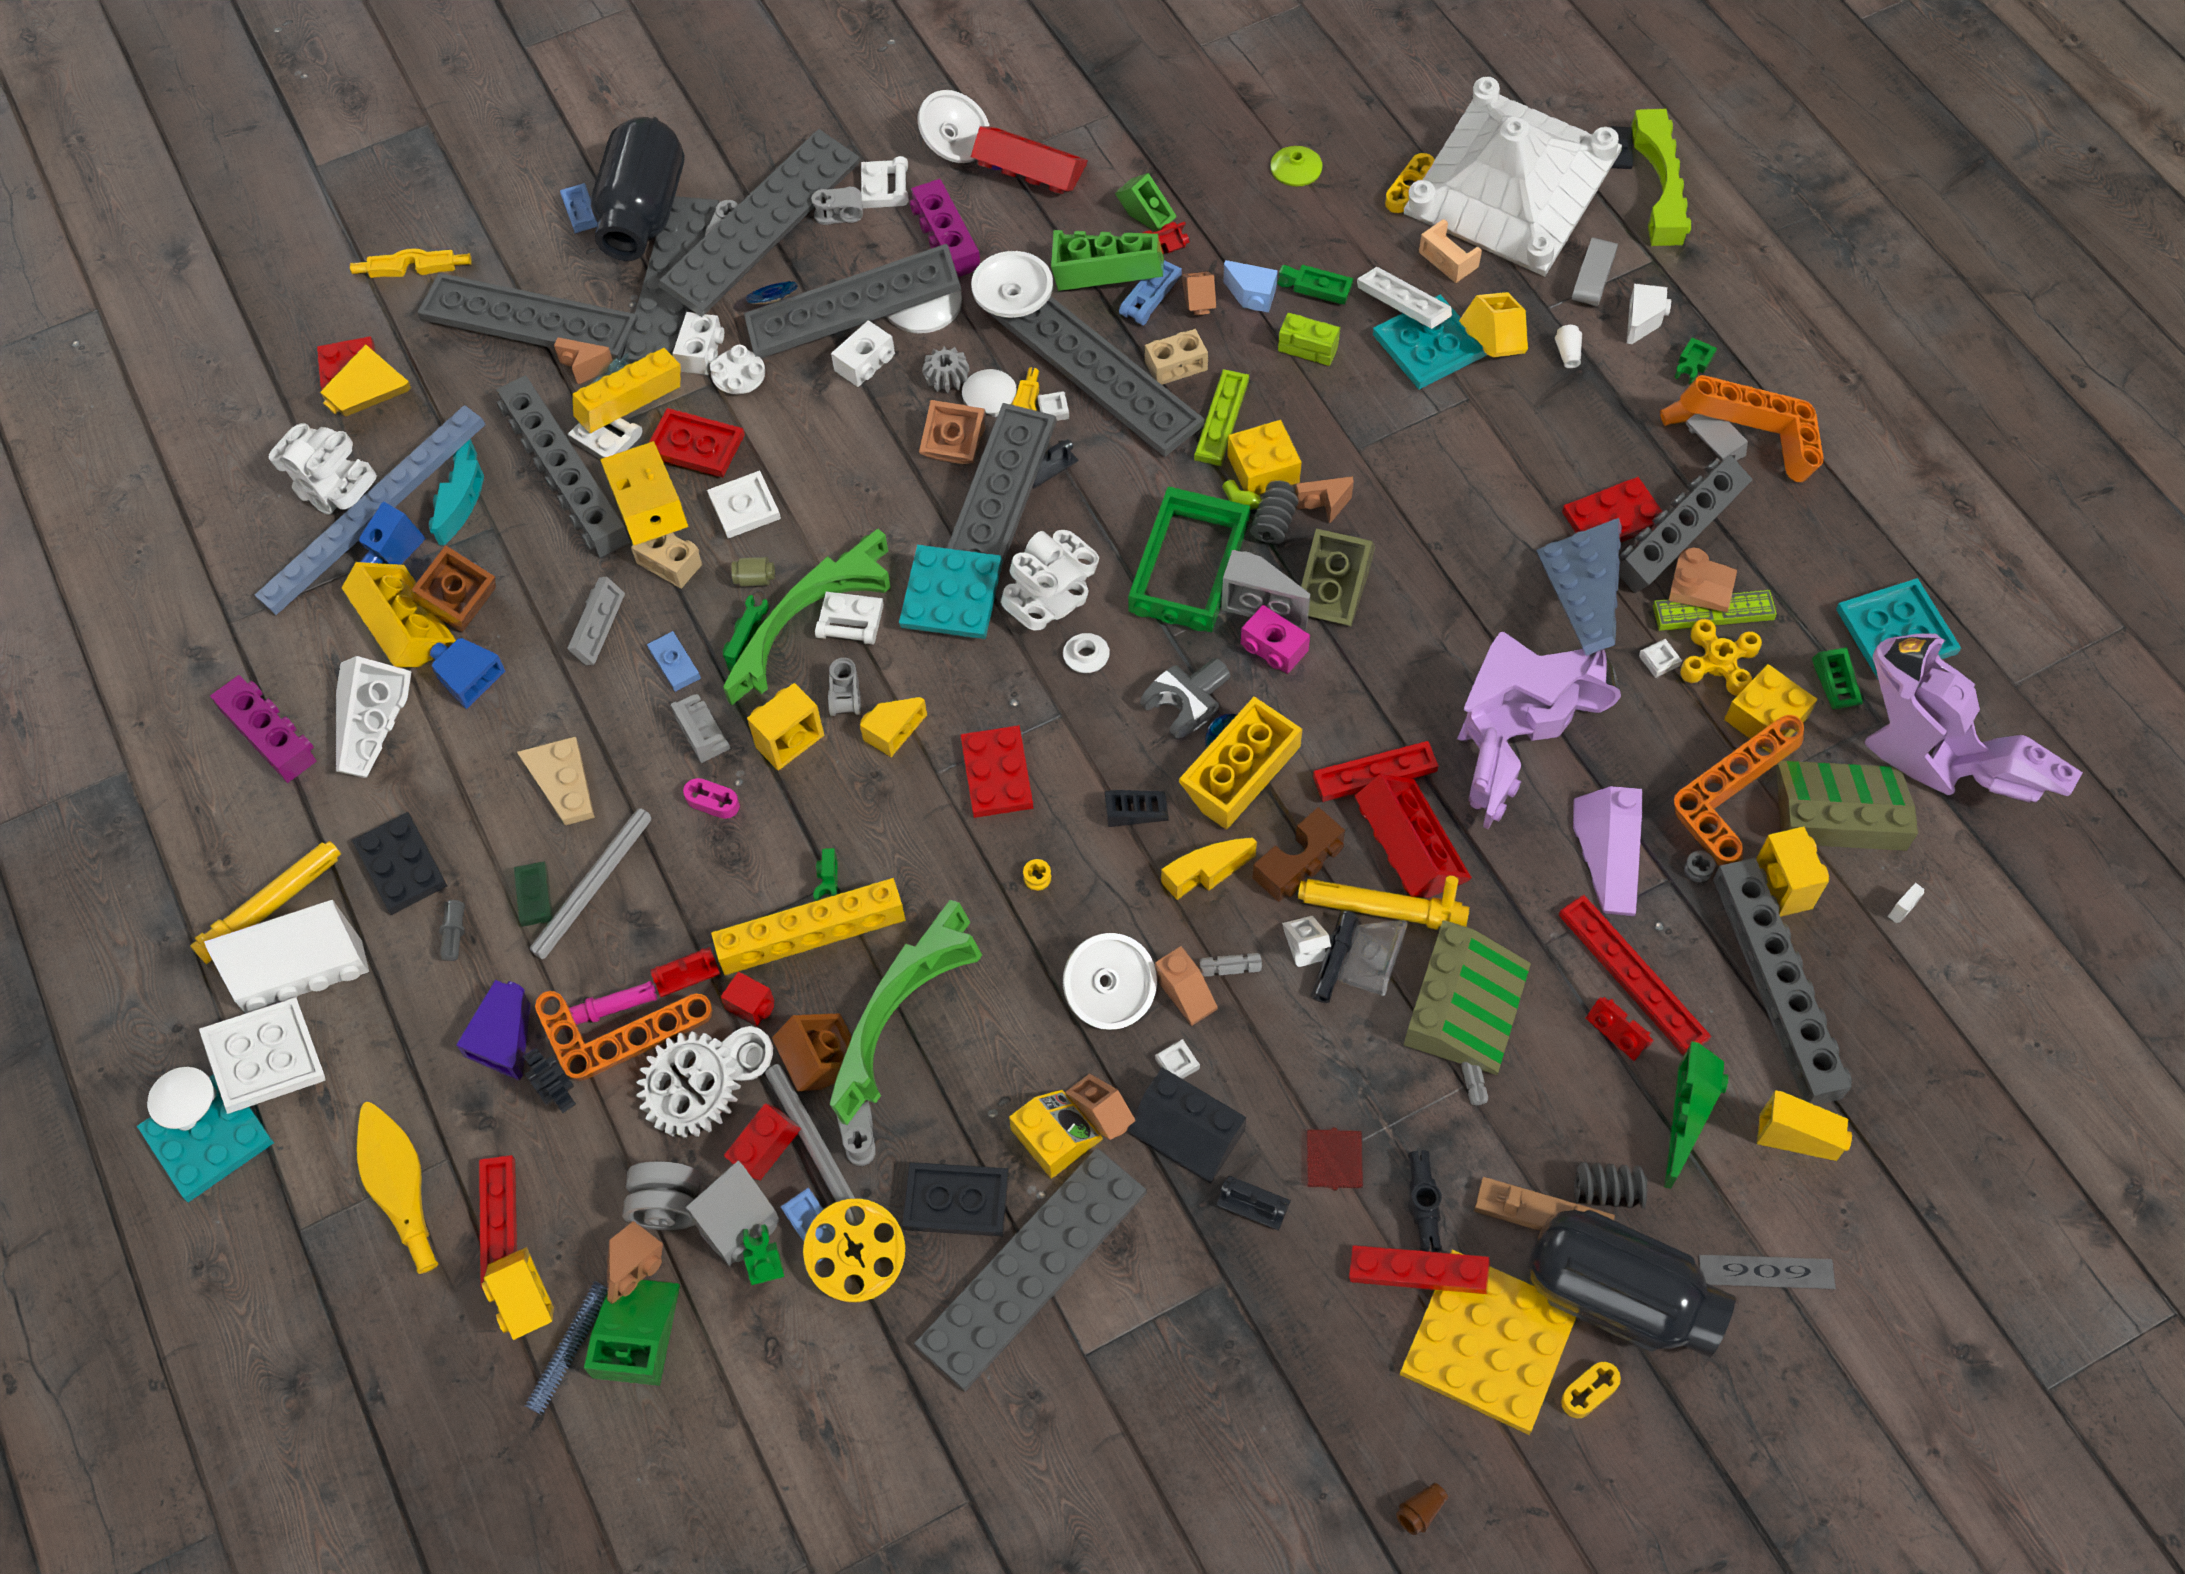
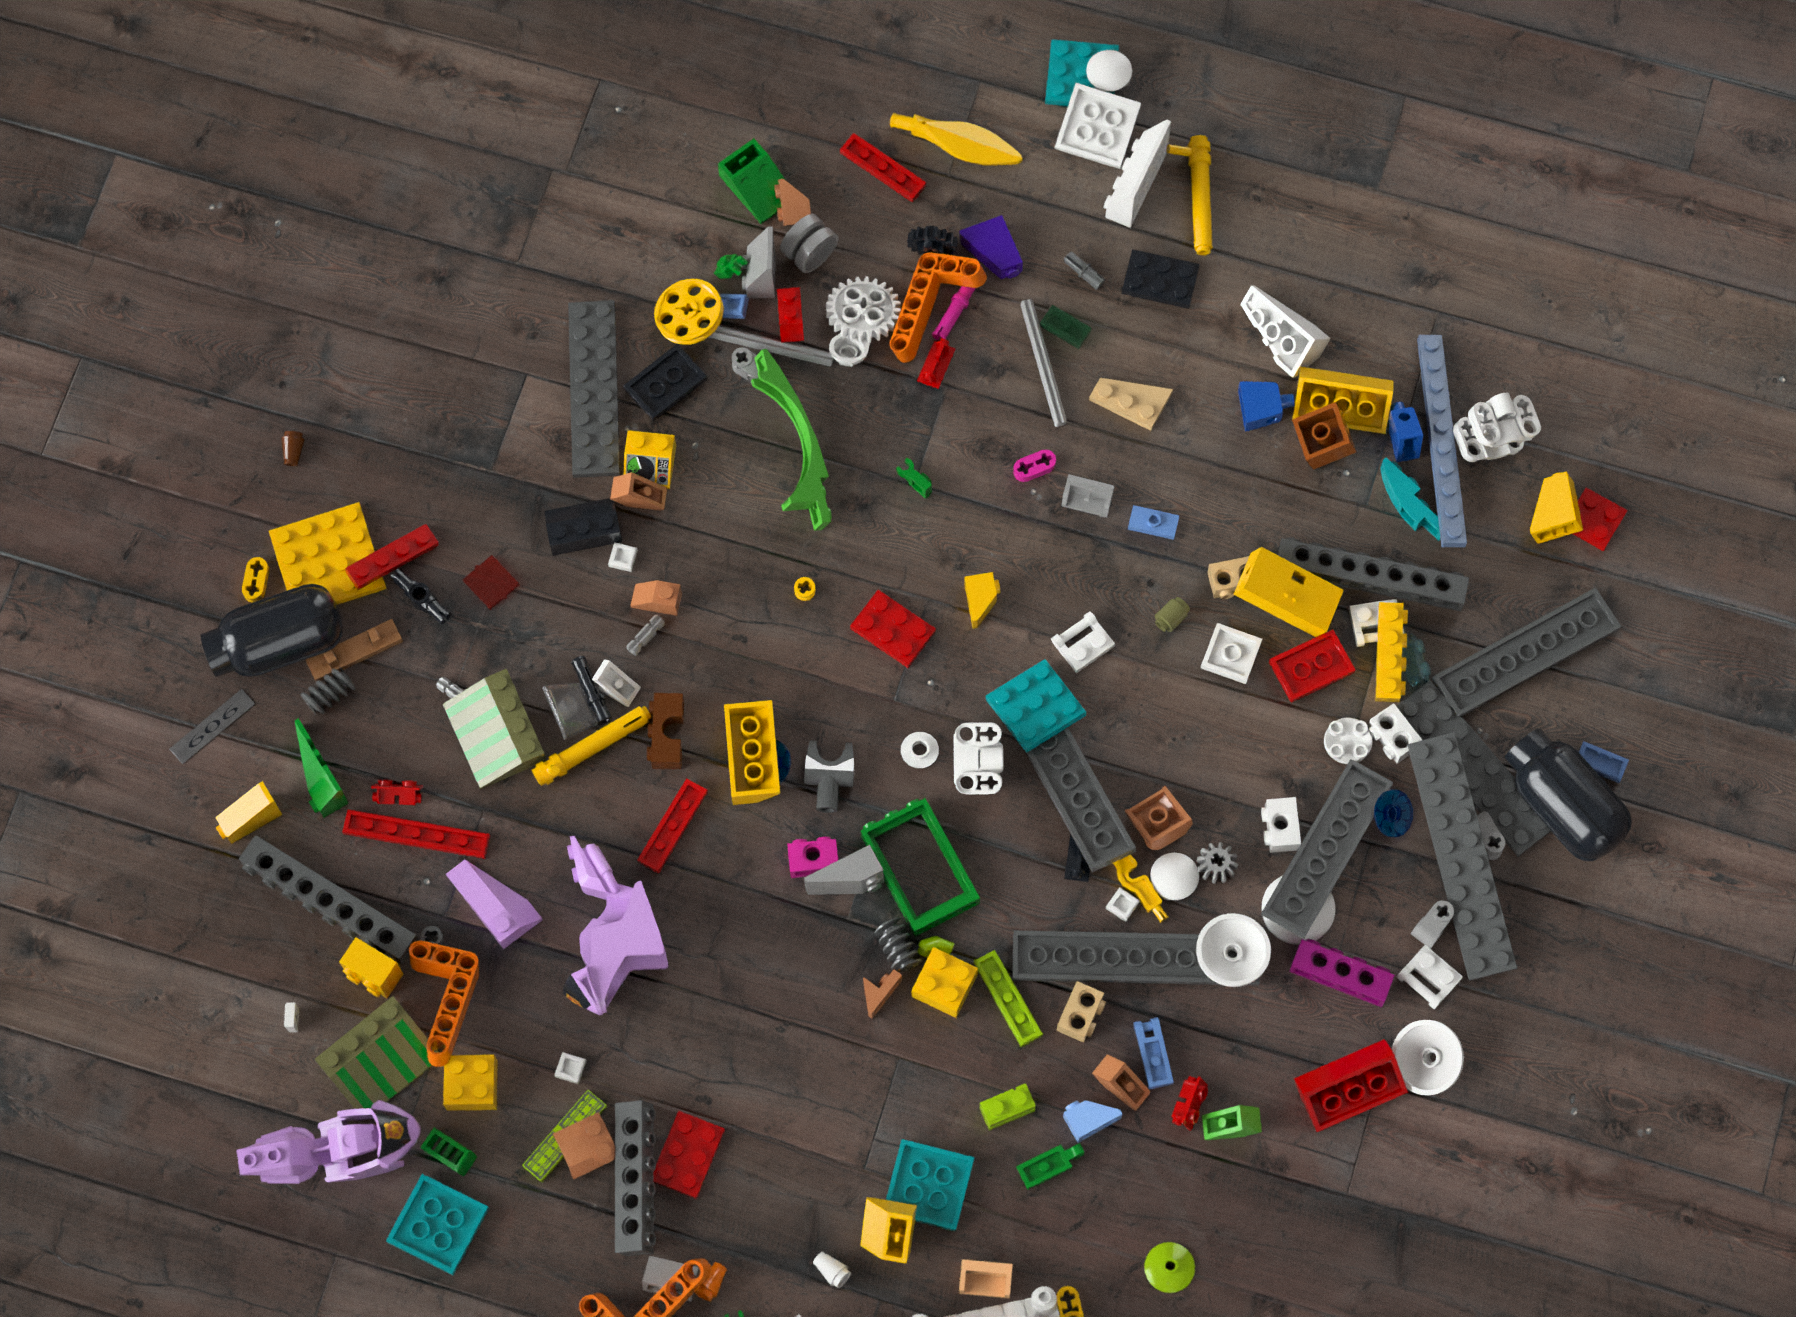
camera: 135 degrees right, 10 degrees up
(250, 714) = (1339, 264): magenta brick -> none
(397, 264) = (1663, 614): yellow piece -> none
(518, 1294) = (824, 139): yellow brick -> none
(566, 1349) = (781, 149): sand blue axle -> none
(585, 358) = (1448, 657): nougat slope -> none
(596, 620) = (1224, 500): light grey hinge -> none
(744, 631) = (1130, 574): green plate -> none
(748, 999) = (883, 378): red brick -> none
(785, 726) = (1034, 532): yellow brick -> none
(808, 926) = (894, 442): yellow brick -> none
(813, 1049) = (818, 386): dark orange slope -> none
(843, 692) = (1028, 589): light grey piece -> none
(852, 572) = (1111, 670): bright green slope -> none
(1104, 259) = (1207, 1034): bright green wedge -> none
(1129, 987) = (696, 556): white dish -> none
(1134, 797) = (783, 673): black slope -> none
(1207, 865) = (712, 676): yellow slope -> none
(1253, 1202) = (511, 519): black hinge -> none
(1336, 575) = (818, 937): olive slope -> none
(1404, 297) = (974, 1196): white plate -> none
(1410, 835) = (612, 802): red slope -> none
(1586, 582) = (655, 1062): sand blue wing -> none
(1720, 656) = (521, 1094): yellow gear -> none

